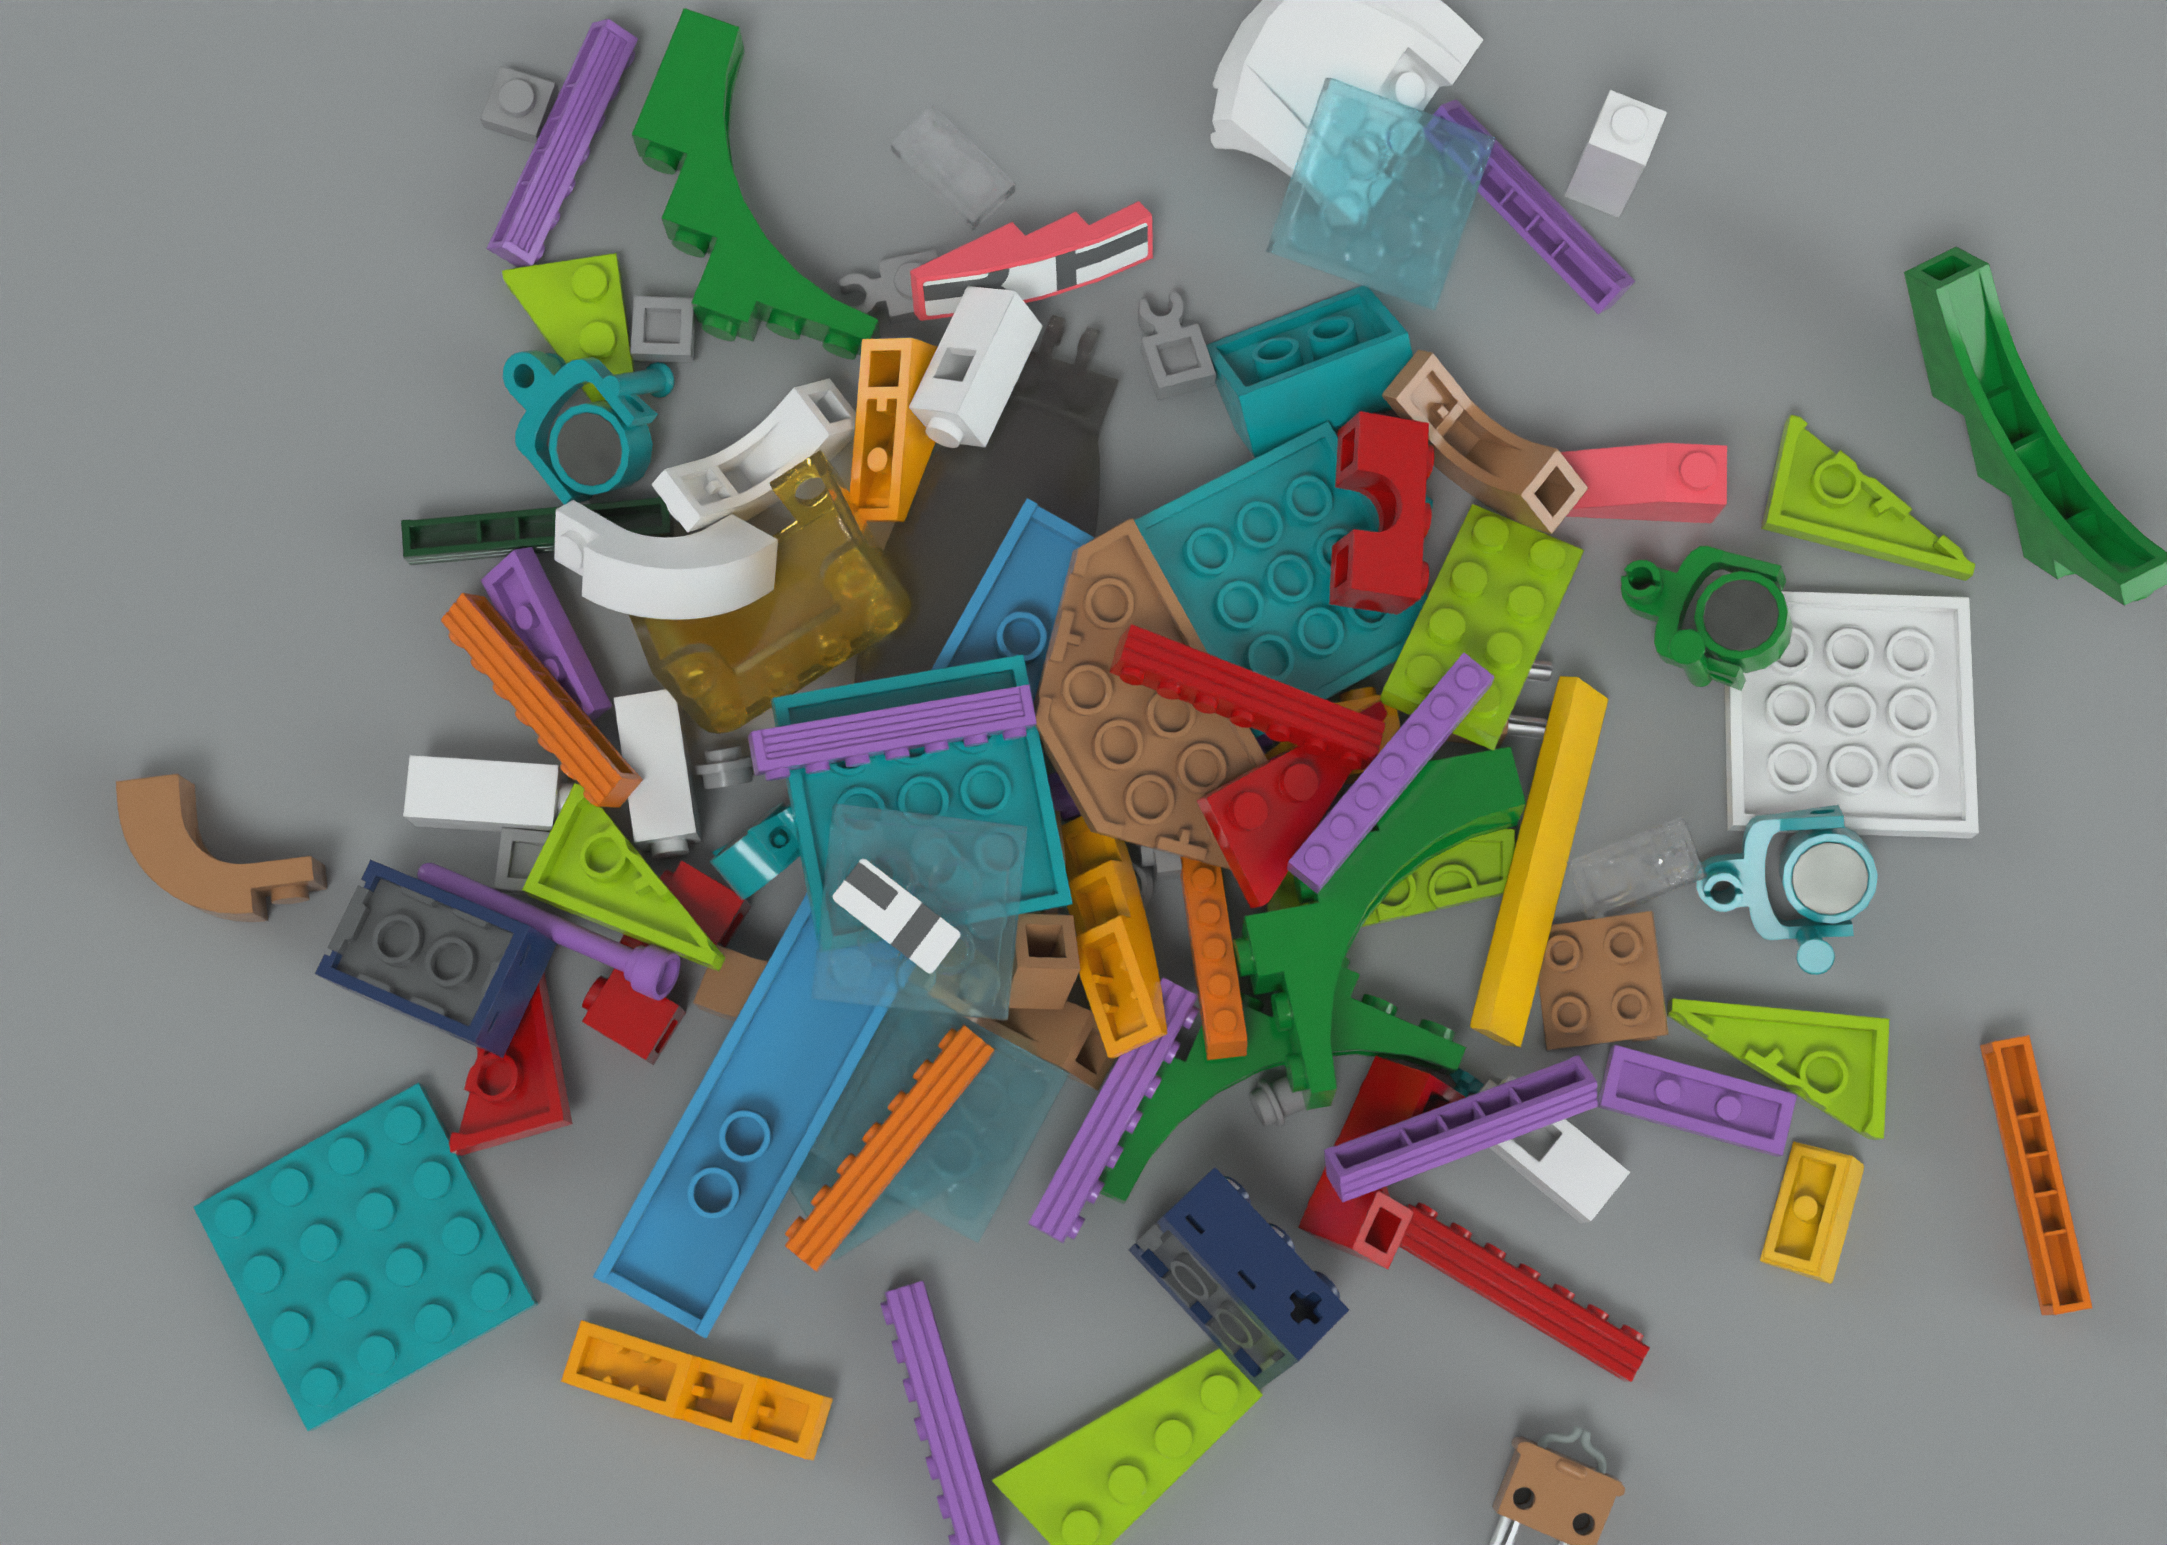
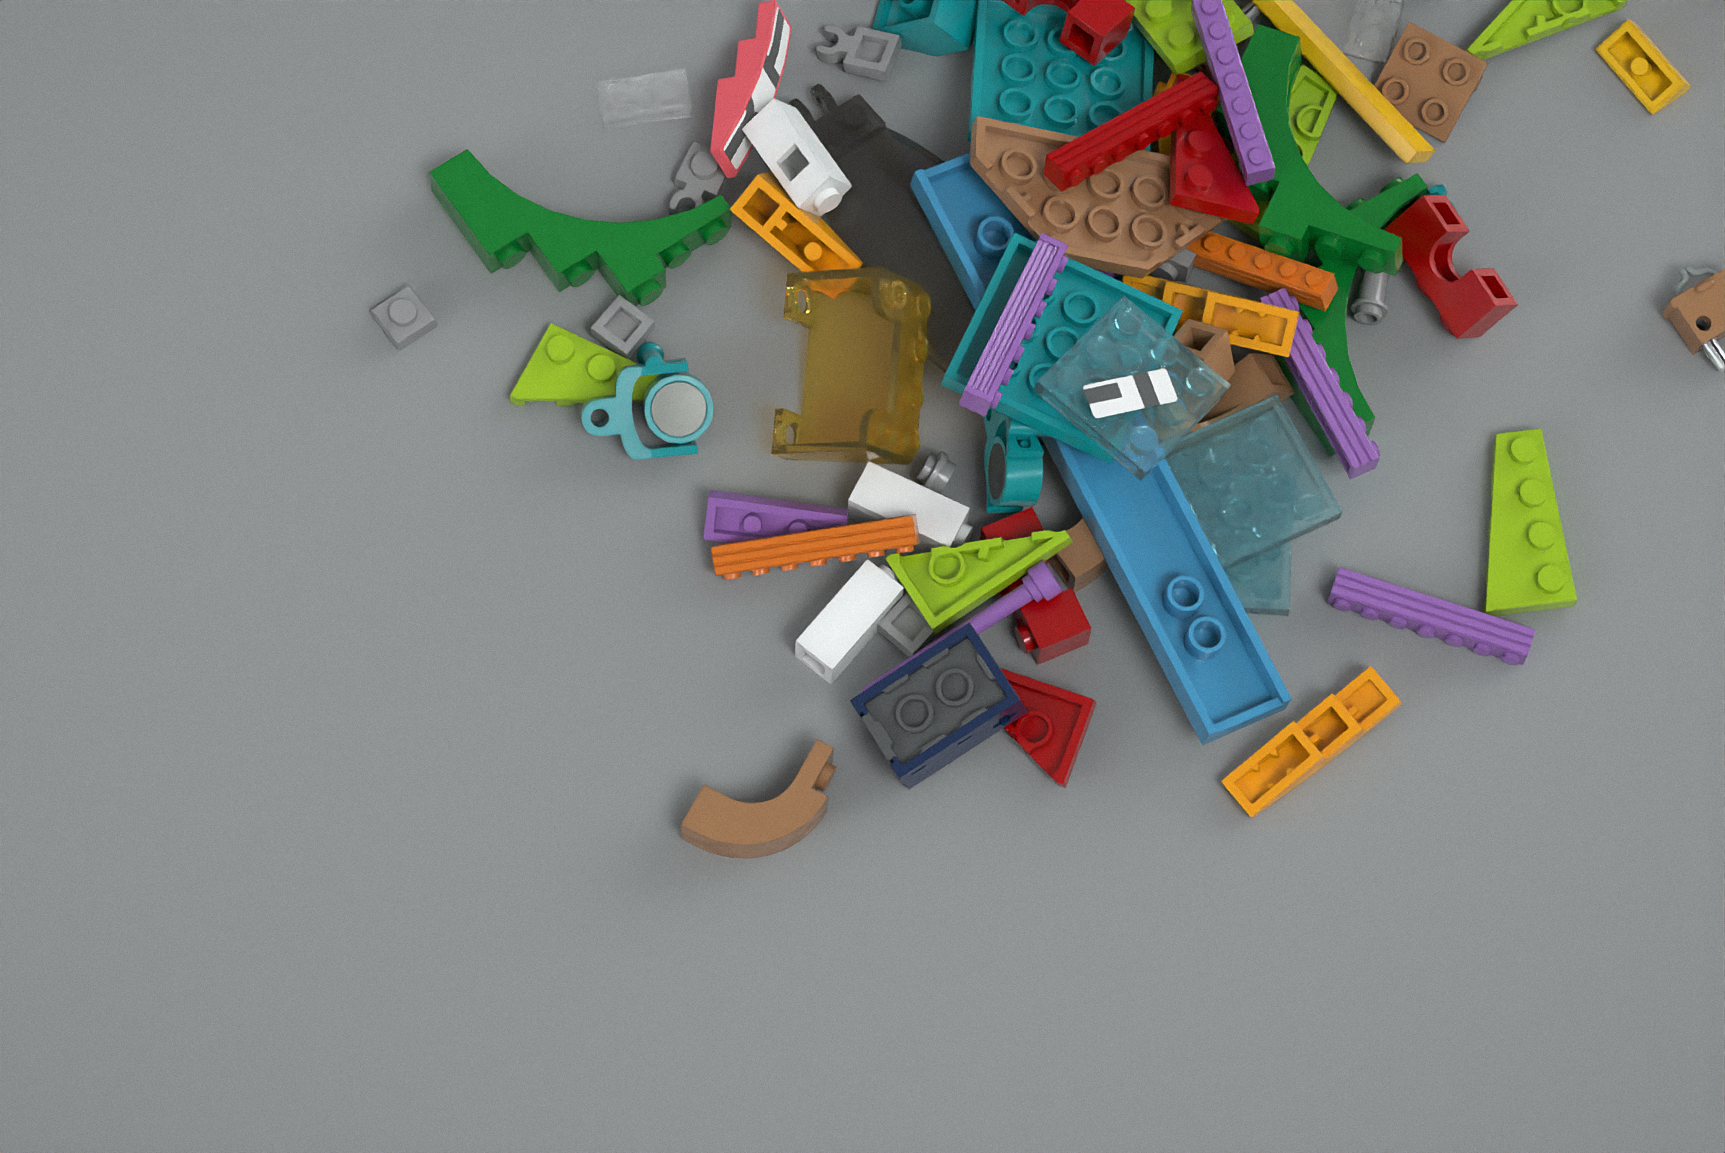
camera: 55 degrees left, 10 degrees down
(365, 1256) = (1088, 884): teal plate -> none
(502, 532) = (695, 486): dark green piece -> none
(563, 144) = (453, 306): medium lavender piece -> none
(666, 575) = (792, 420): white arch -> none
(739, 477) = (758, 317): white arch -> none
(888, 1147) = (1251, 517): orange piece -> none
(1240, 1279) = (1467, 385): dark blue piece -> none
(1460, 1128) = (1467, 200): medium lavender piece -> none
(1523, 1295) = (1586, 249): red piece -> none
(1563, 1165) = (1505, 177): white brick -> none
(1696, 1101) = (1535, 80): medium lavender plate -> none

